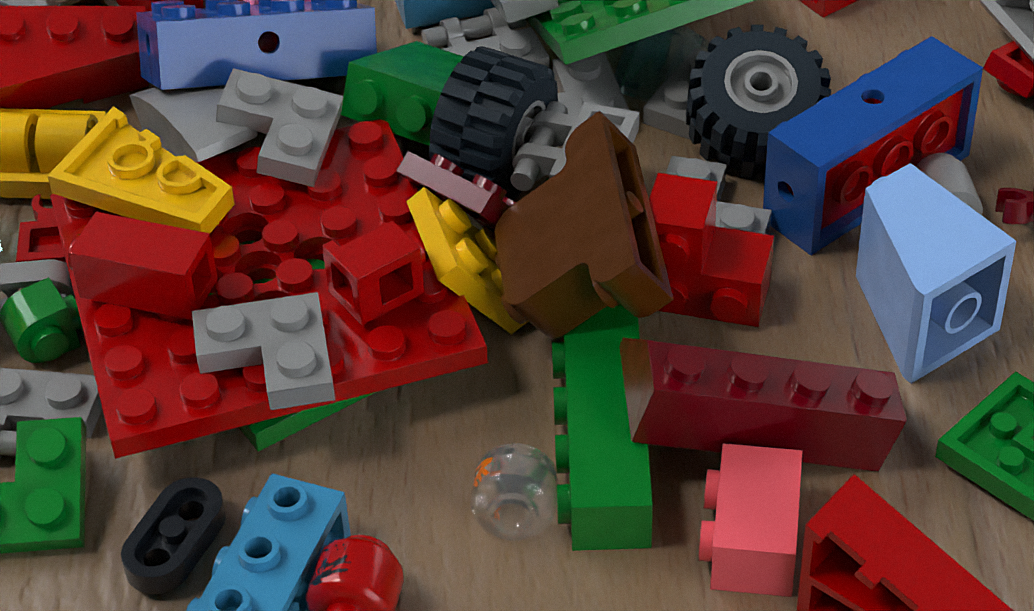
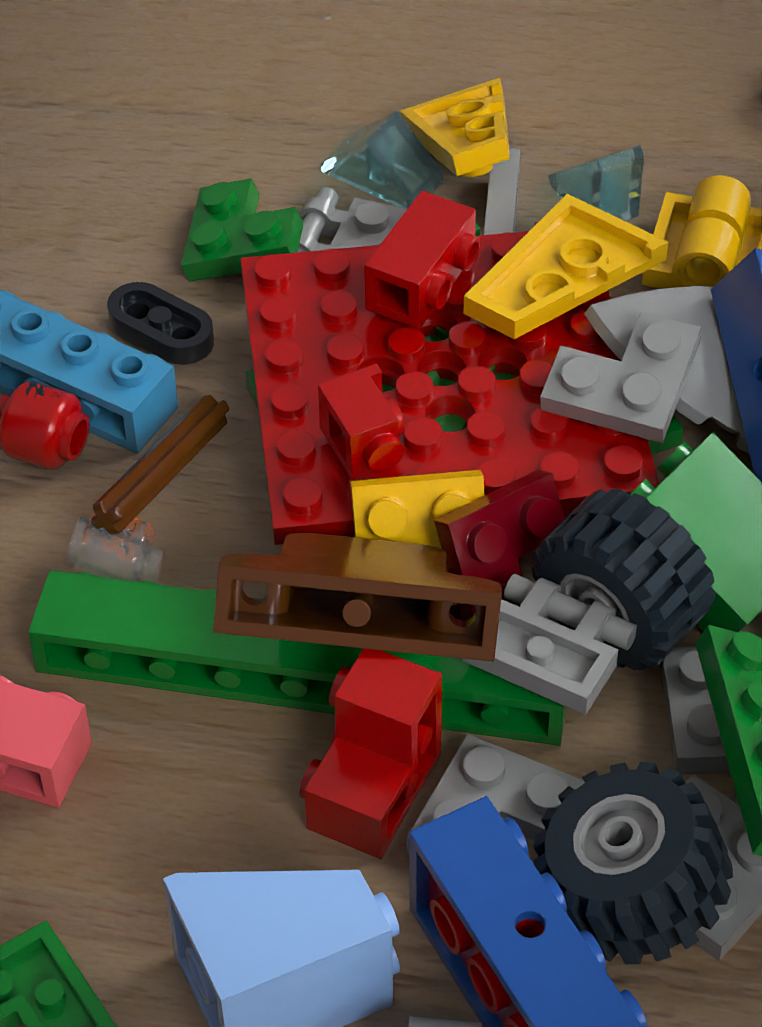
camera: 100 degrees right, 5 degrees up
(275, 332) = (294, 365): light grey plate -> none
(408, 460) = (159, 465): none -> reddish brown axle
(738, 398) = (143, 749): dark red slope -> none

